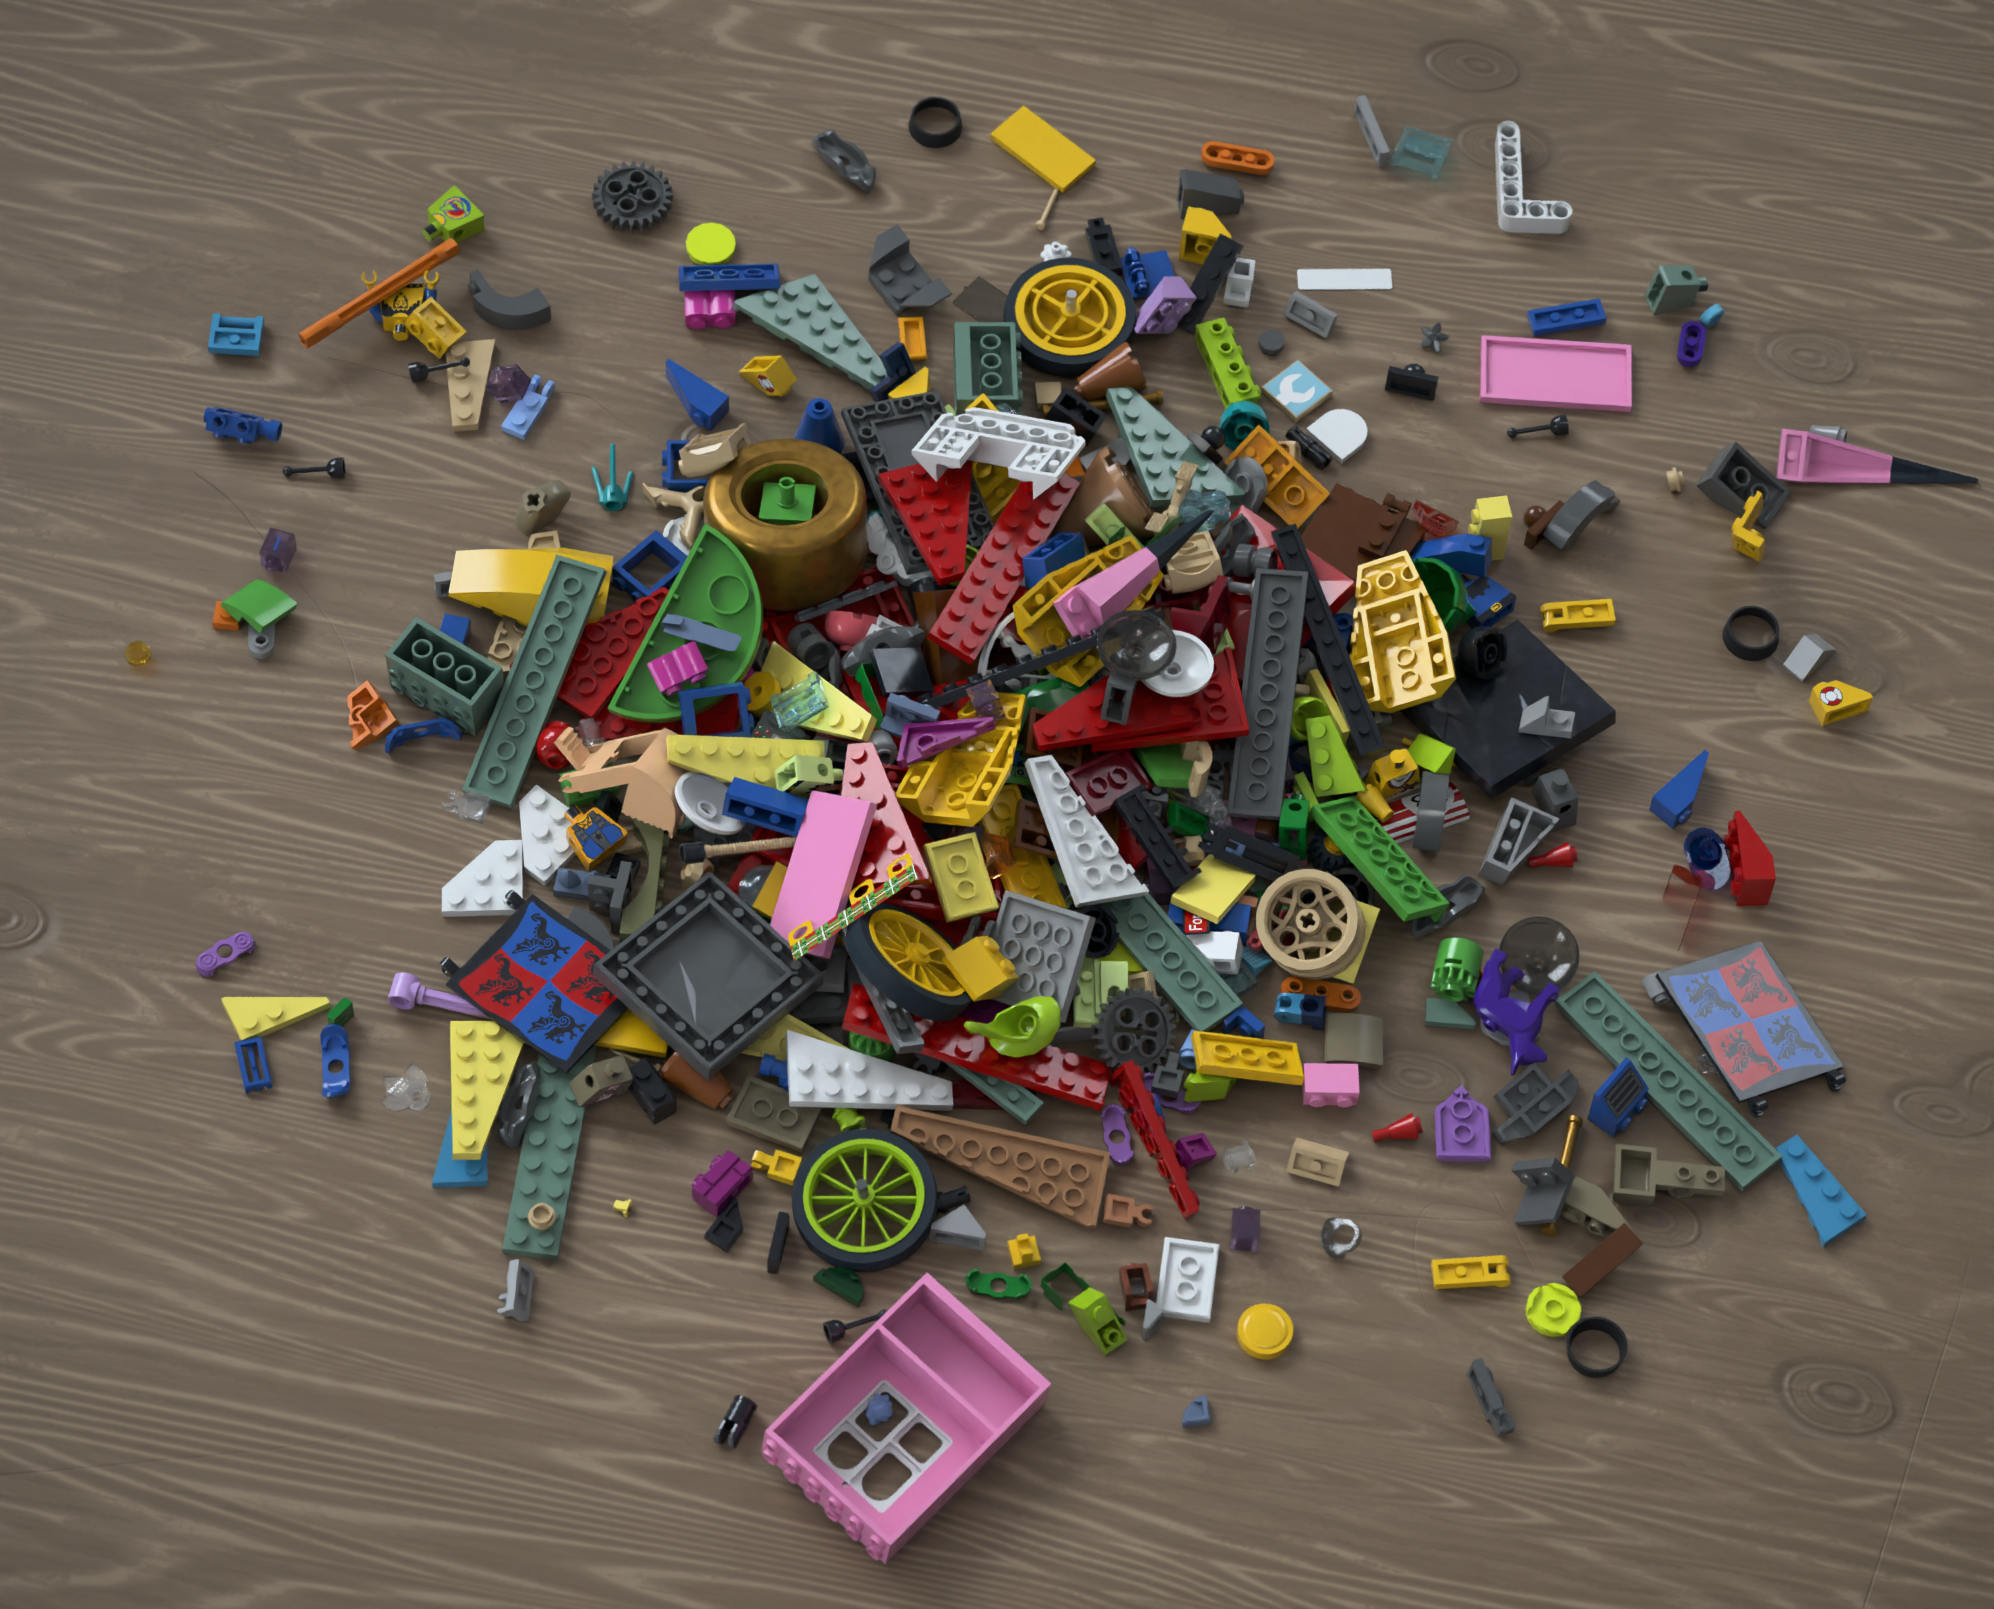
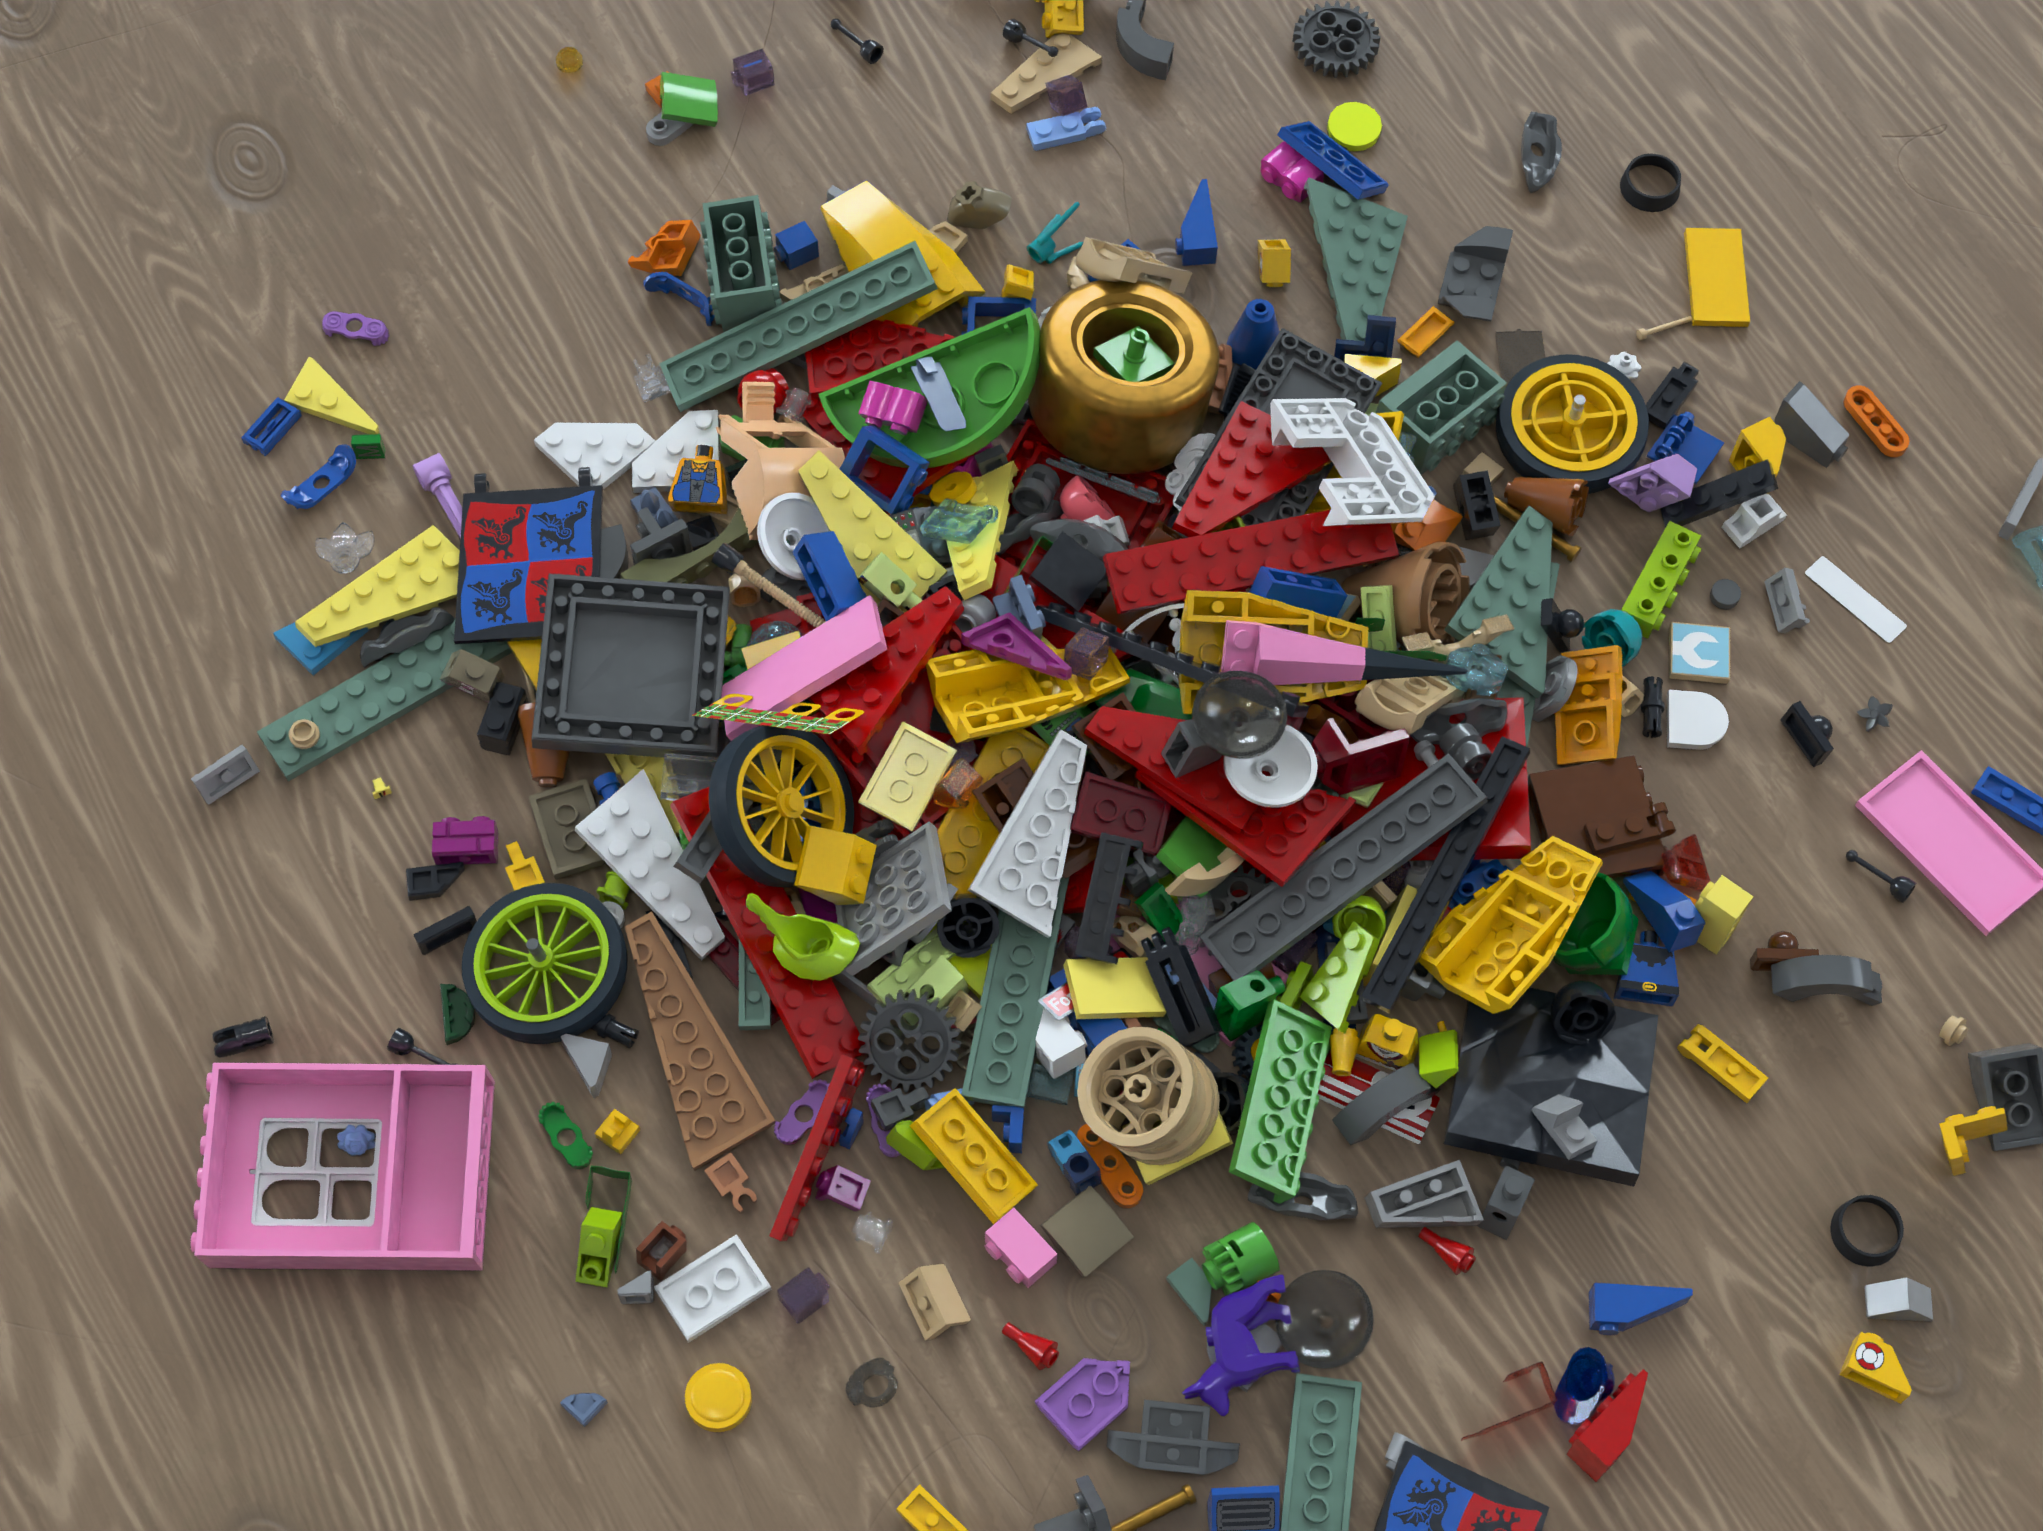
camera: 50 degrees right, 5 degrees up
(630, 532) = (1018, 283): none -> yellow tile
(822, 1007) = (685, 775): none -> clear panel

